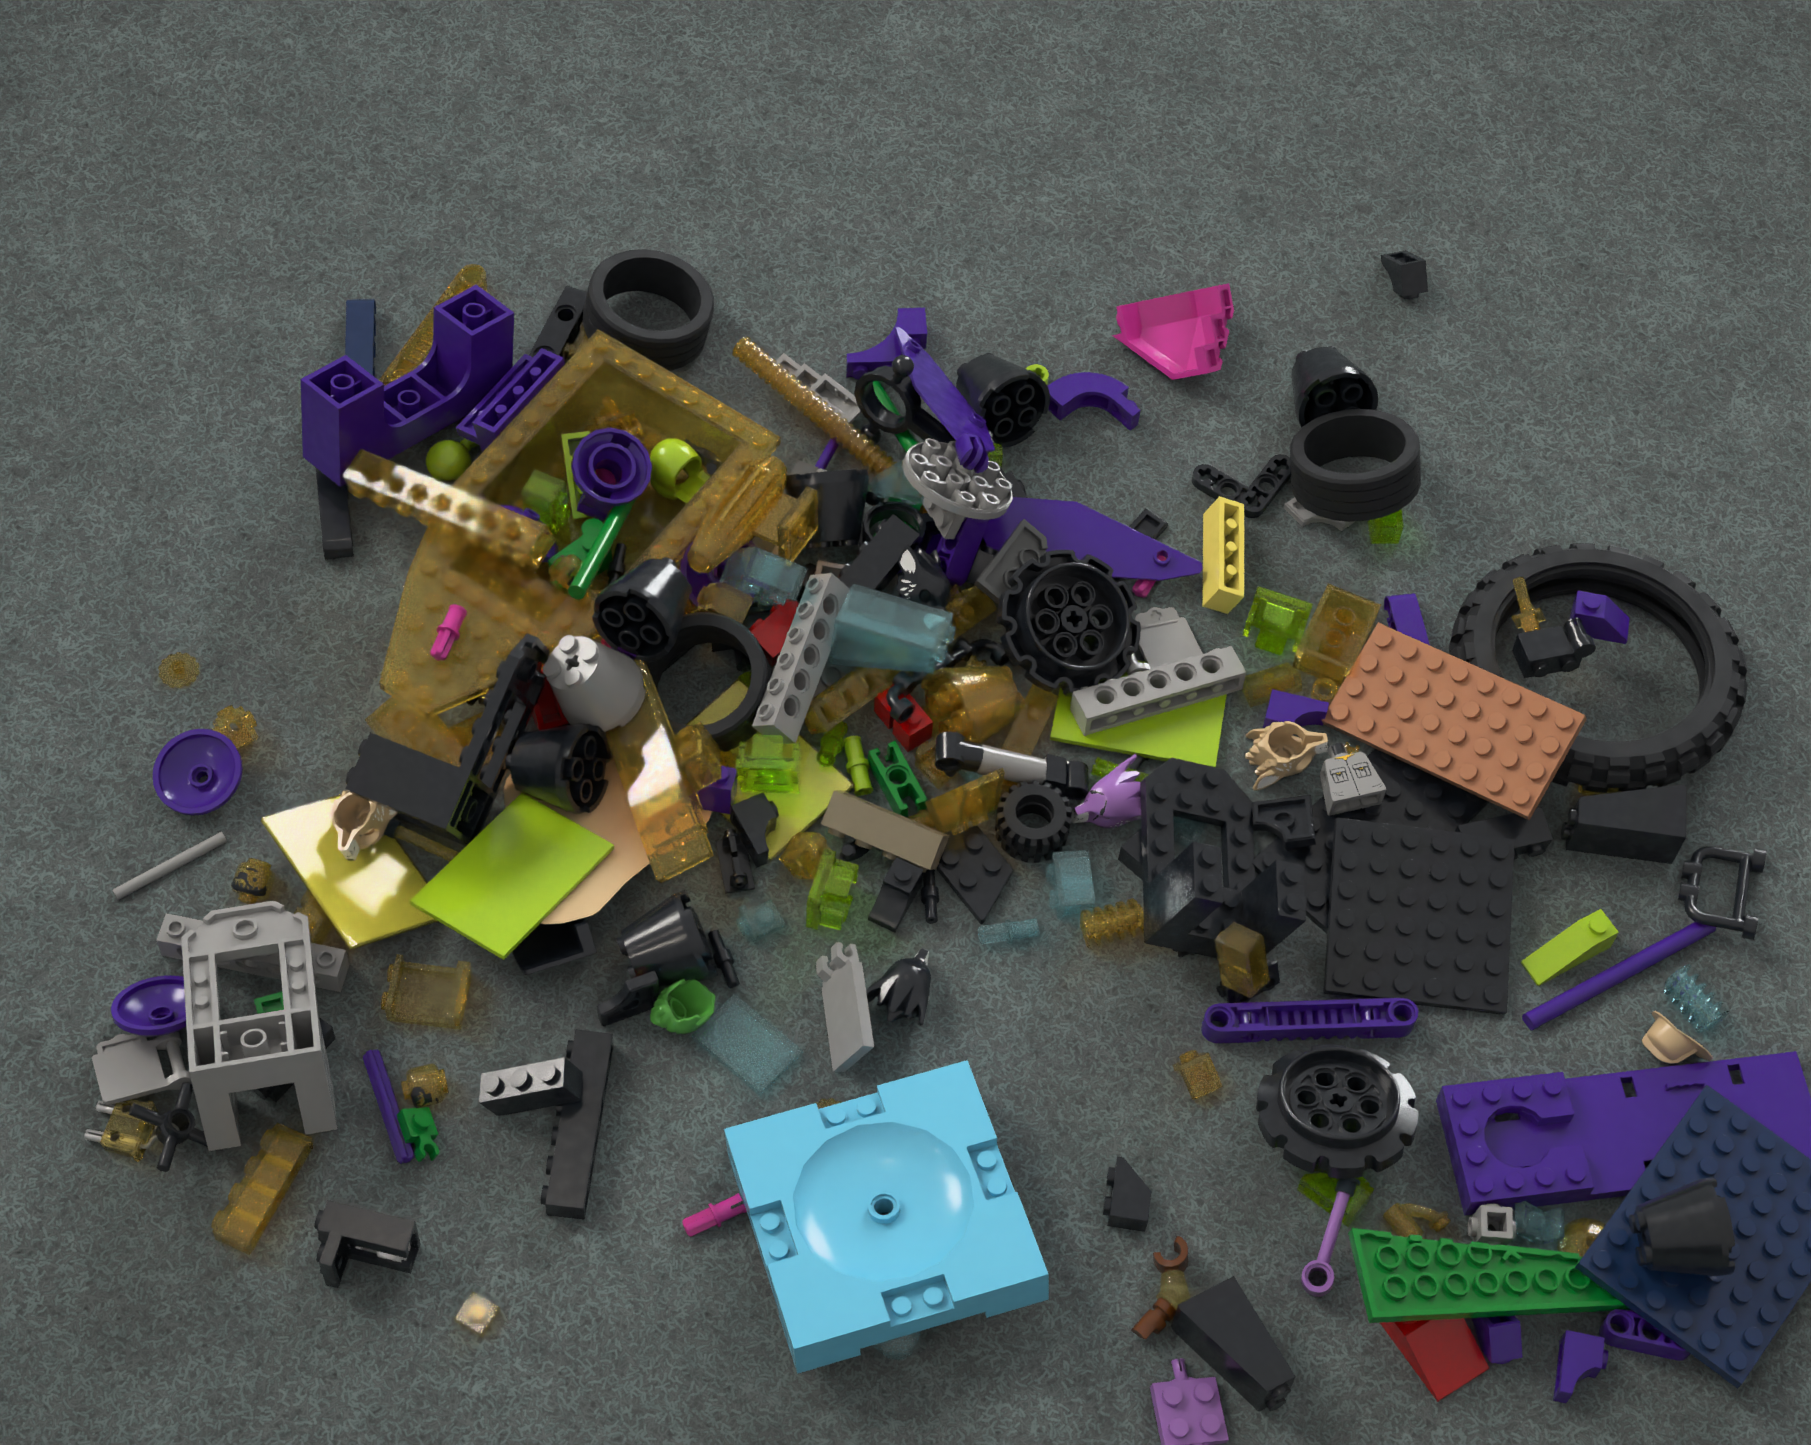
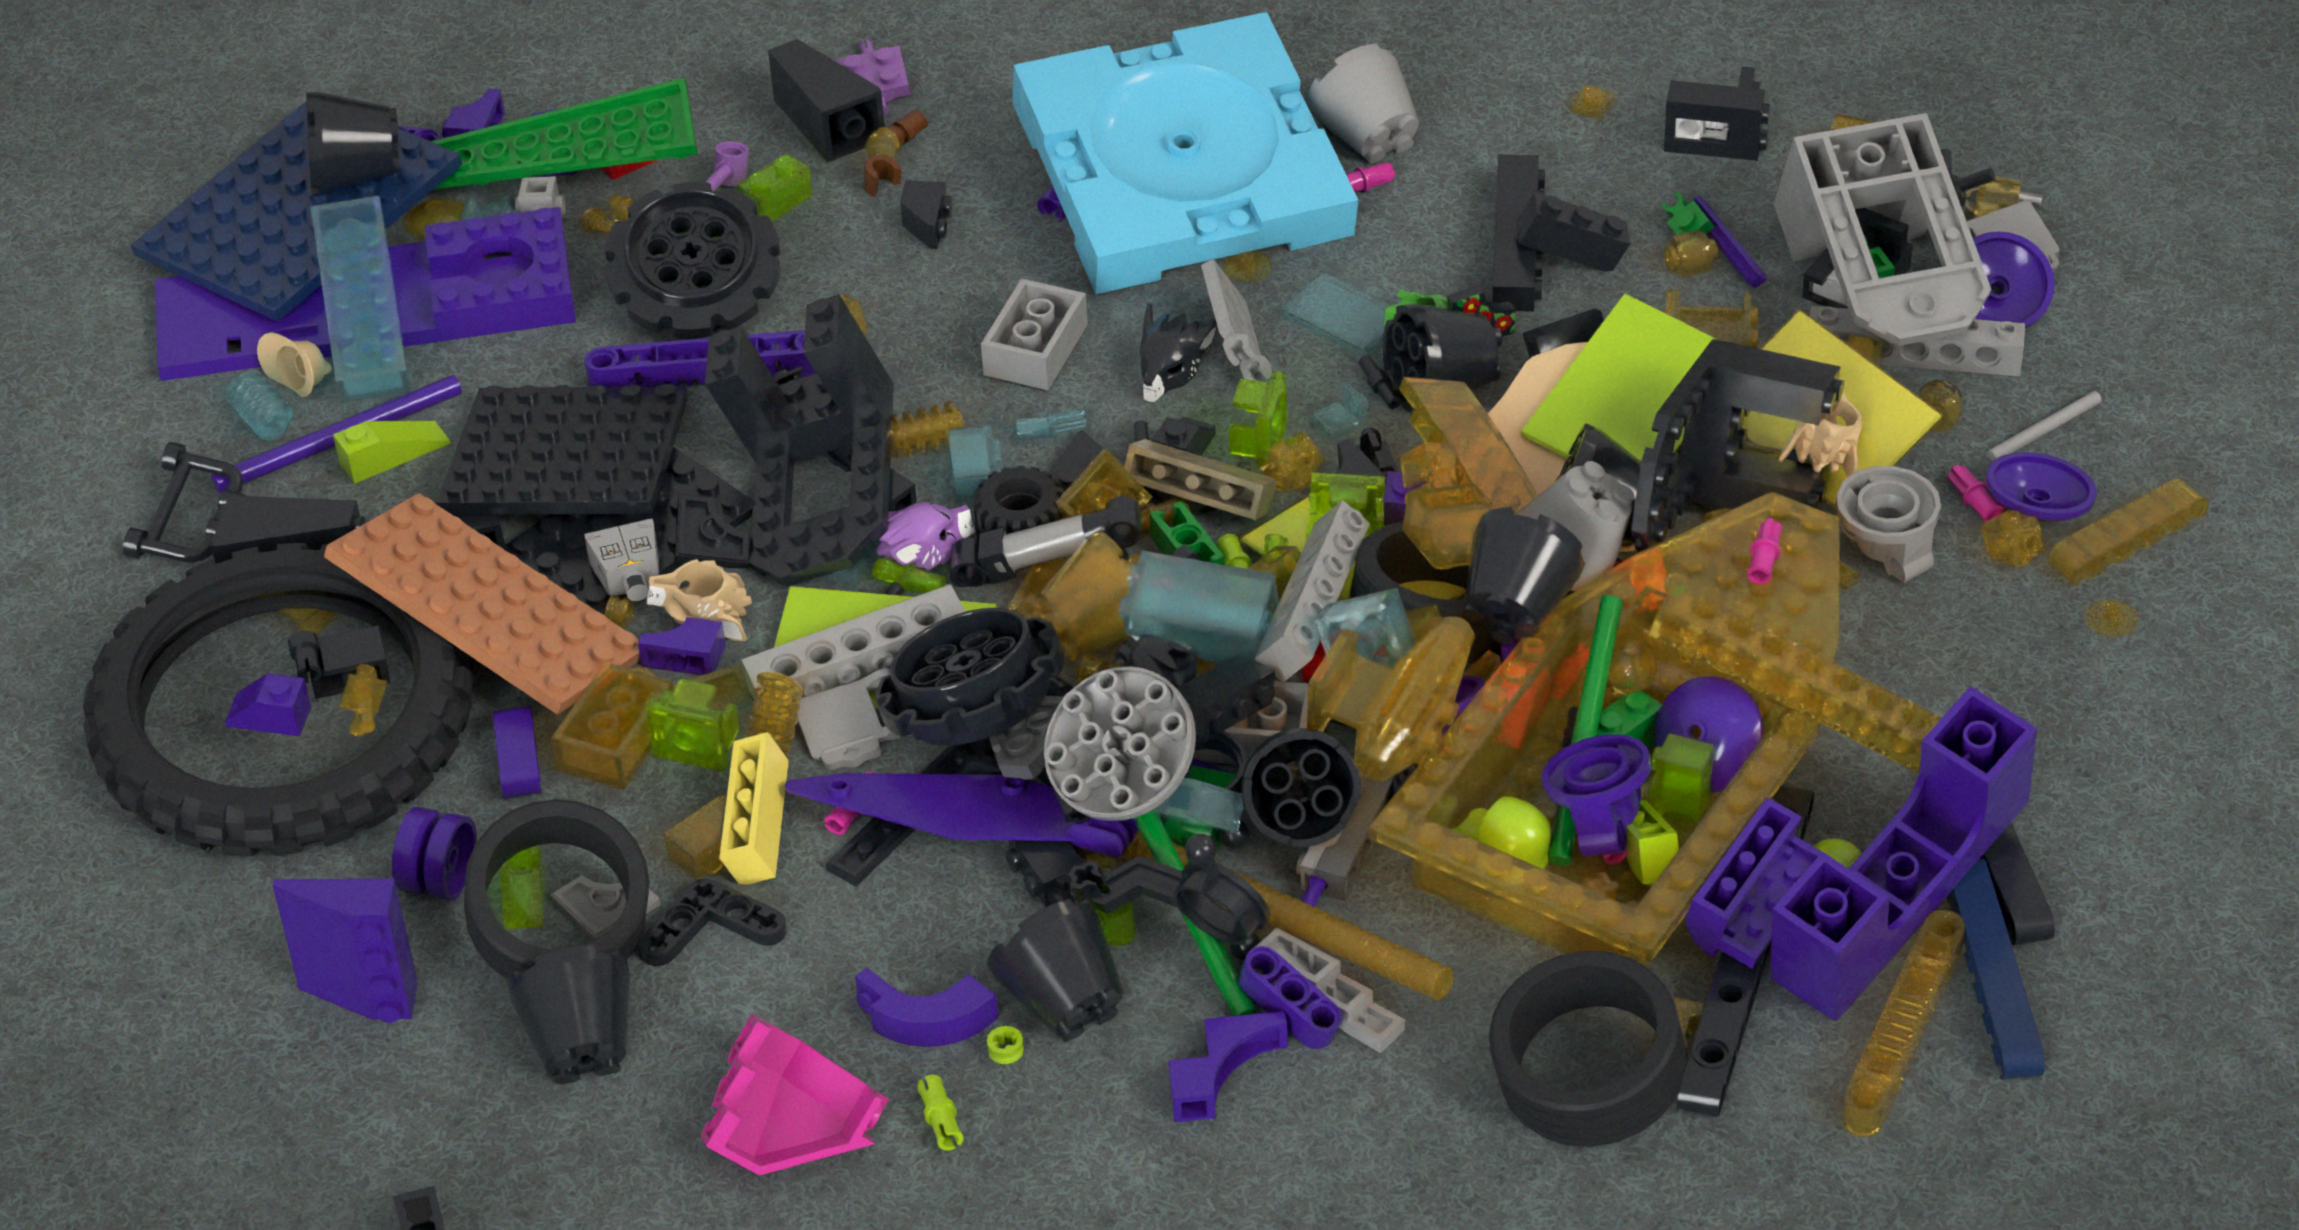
camera: 175 degrees left, 15 degrees down
(137, 738) = (2127, 530): none -> clear yellow beam
(250, 795) = (1974, 493): none -> dark pink axle
(328, 715) = (1890, 518): none -> light grey piece
(688, 691) = (1444, 522): none -> clear yellow slope
(702, 1284) = (1366, 103): none -> light grey cone
(838, 367) = (1282, 980): none -> dark purple beam
(949, 406) = (1139, 887): dark purple wing -> none
(1022, 1018) = (1034, 334): none -> light grey brick
(1078, 330) = (940, 1112): none -> lime pin
(1216, 626) = (776, 708): none -> clear yellow piece
(1242, 959) = (783, 351): clear yellow piece -> none
(1261, 540) = (697, 840): none -> clear yellow slope
(1271, 1235) = (778, 186): none -> clear neon green brick
(1454, 526) = (433, 853): none -> dark purple wheel
(1493, 420) = (349, 944): none -> dark purple slope
(1631, 1077) = (360, 299): none -> clear light blue brick

